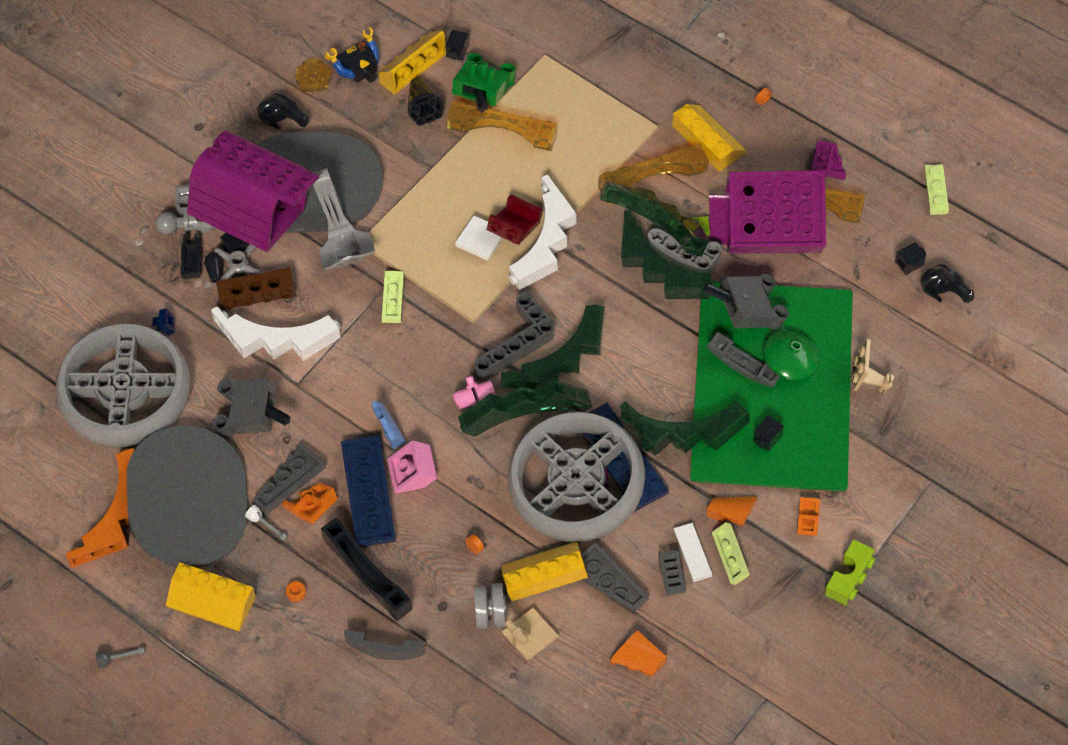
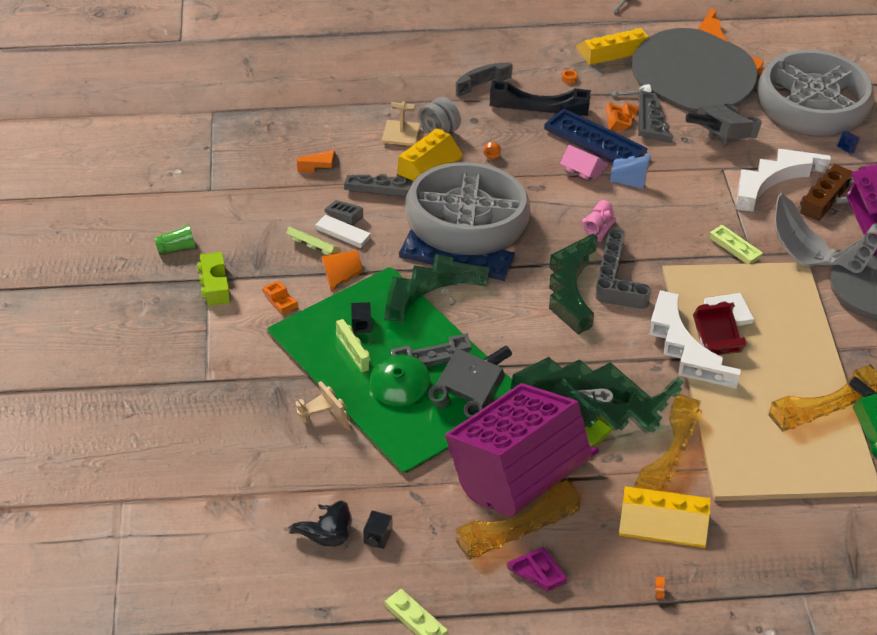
camera: 135 degrees right, 15 degrees down
(548, 396) = (545, 231): clear green arch -> none
(797, 411) = (353, 345): none -> yellowish green plate
(852, 640) = (175, 240): none -> bright green plant

